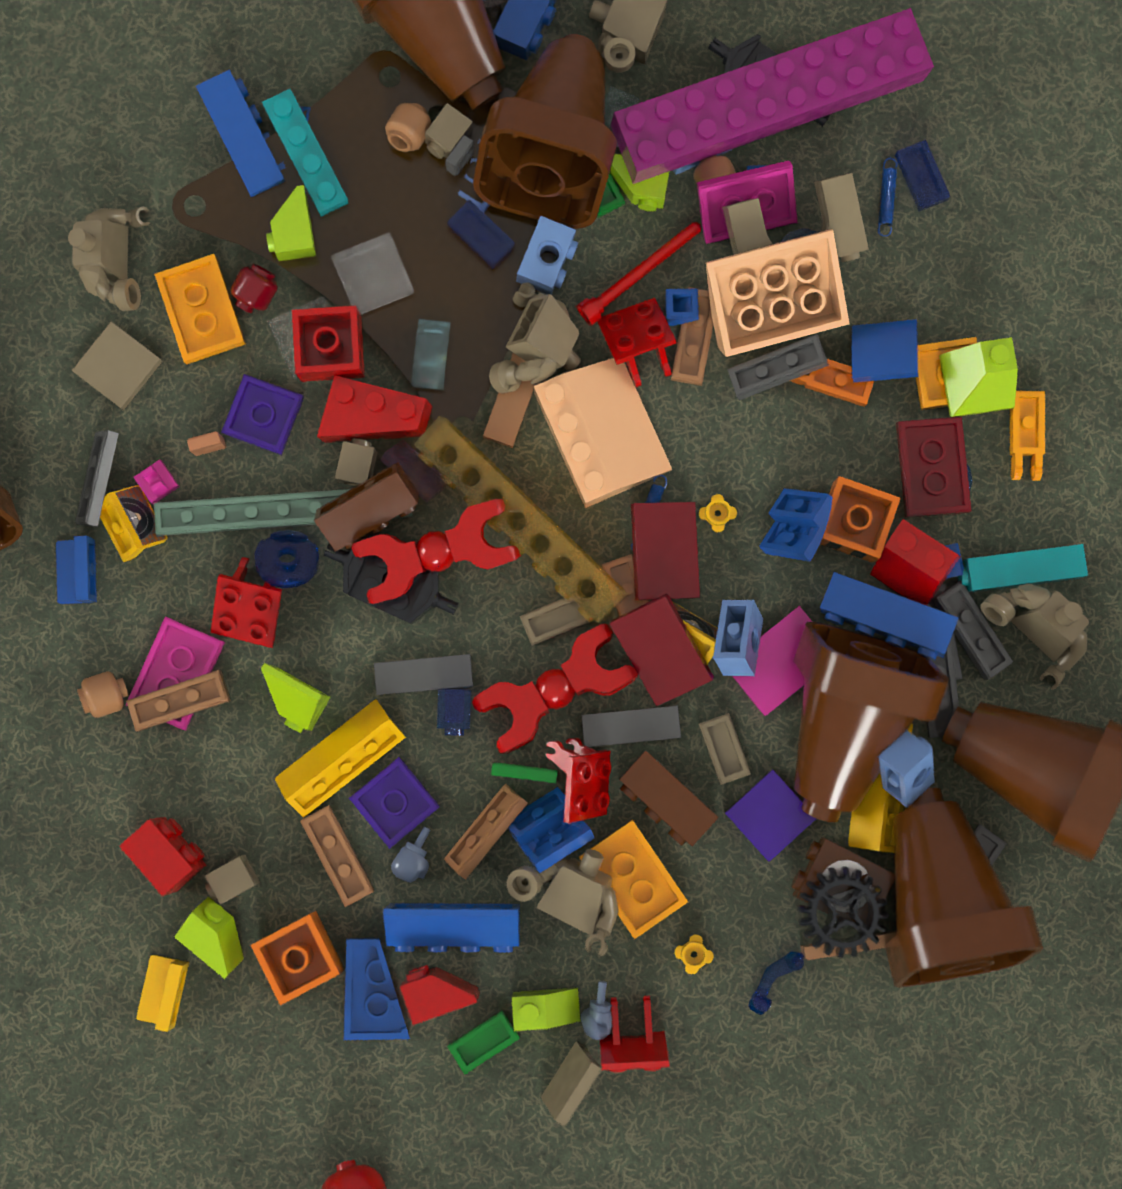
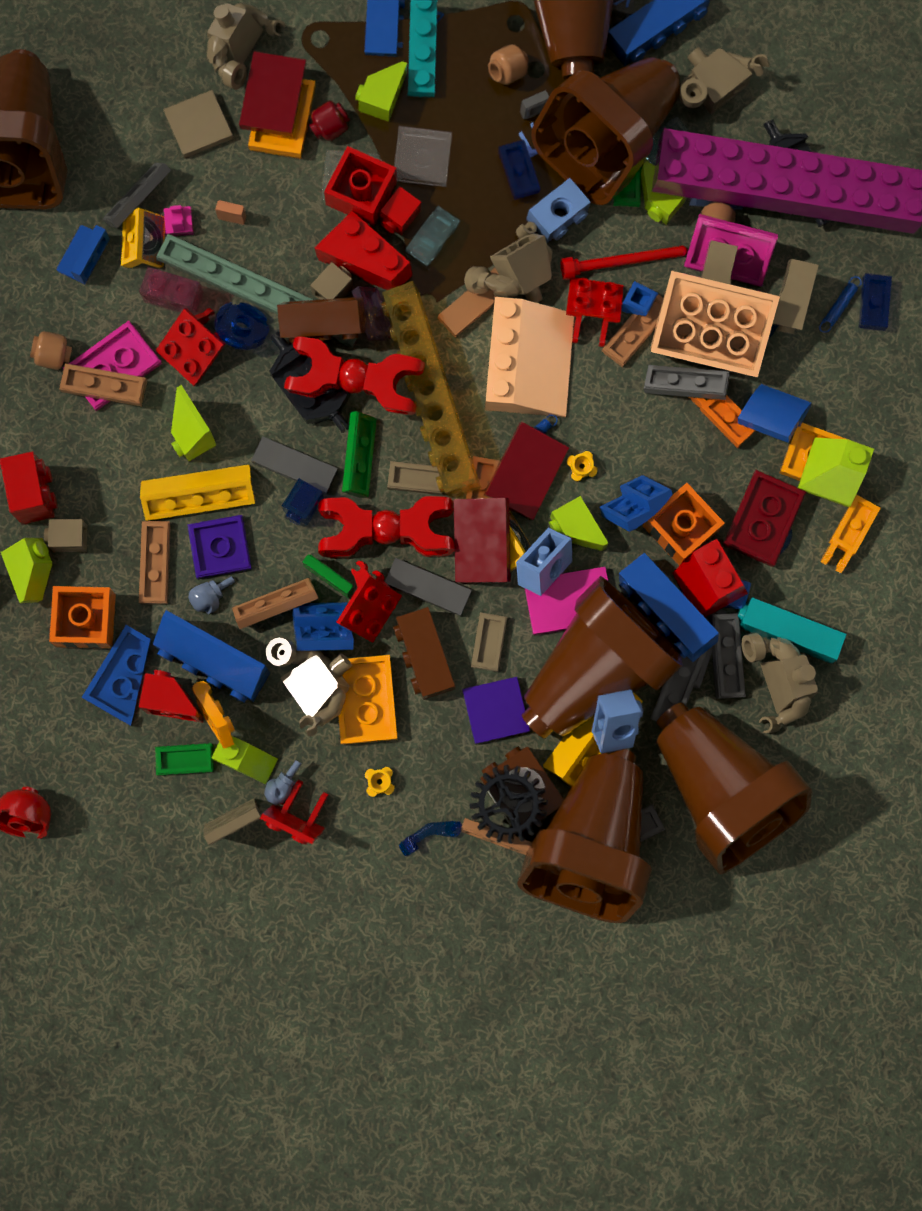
camera: 20 degrees right, 5 degrees down
(178, 292) = (272, 94): none -> dark red tile
(192, 563) = (170, 291): none -> clear pink brick
(262, 414) = (284, 215): dark purple tile -> none
(383, 347) = (399, 211): none -> red brick
(447, 131) = (534, 81): dark tan brick -> none
(484, 628) = (359, 454): none -> green tile
(489, 983) = (213, 714): none -> light orange hinge
(748, 579) = (578, 524): none -> lime slope

